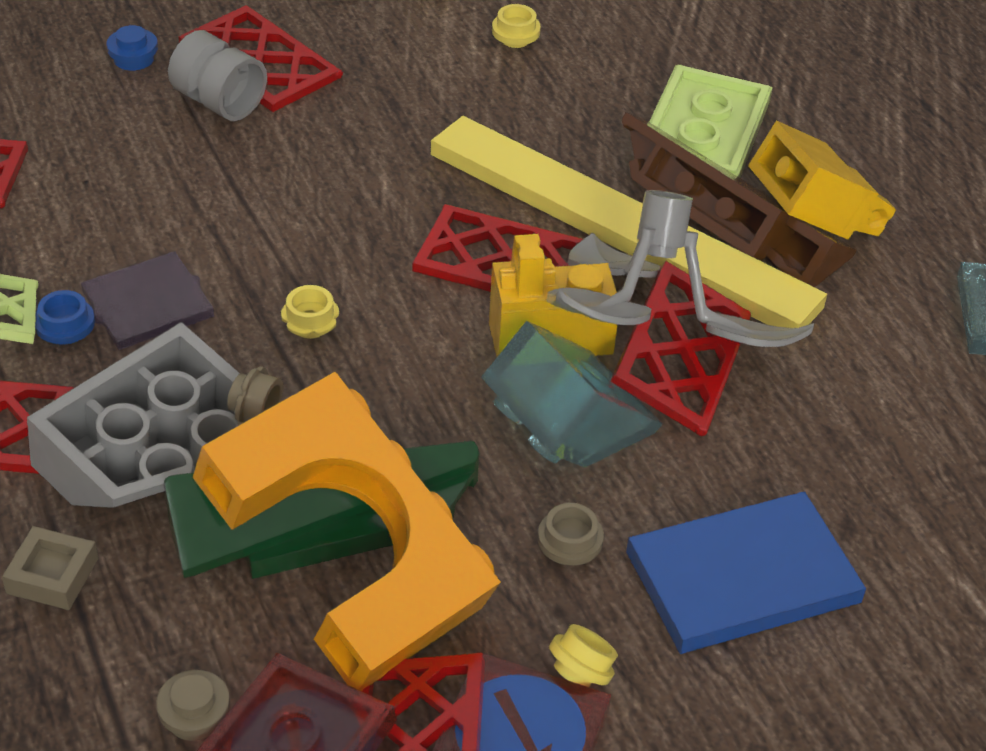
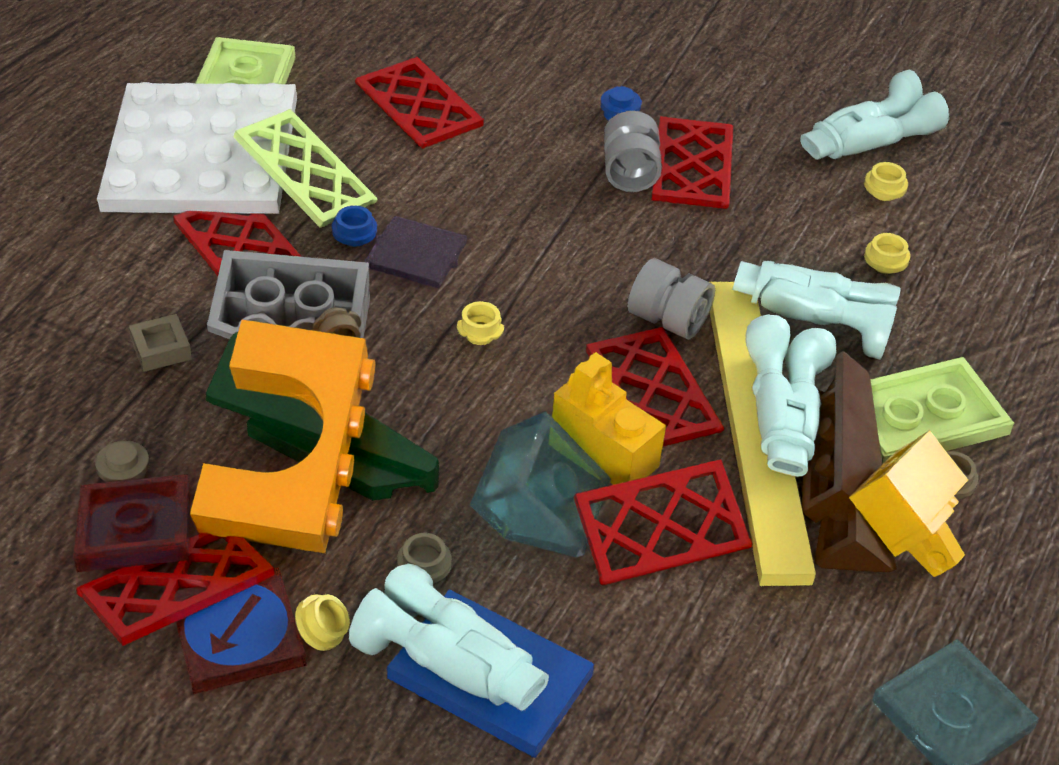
camera: 50 degrees right, 0 degrees up
(435, 170) = (665, 296): none -> light grey wheel
(545, 88) = (823, 299): none -> light aqua piece
(596, 154) = (787, 409): none -> light aqua piece
(660, 234) = (695, 429): light grey plant -> none
(719, 567) = (454, 646): none -> light aqua piece

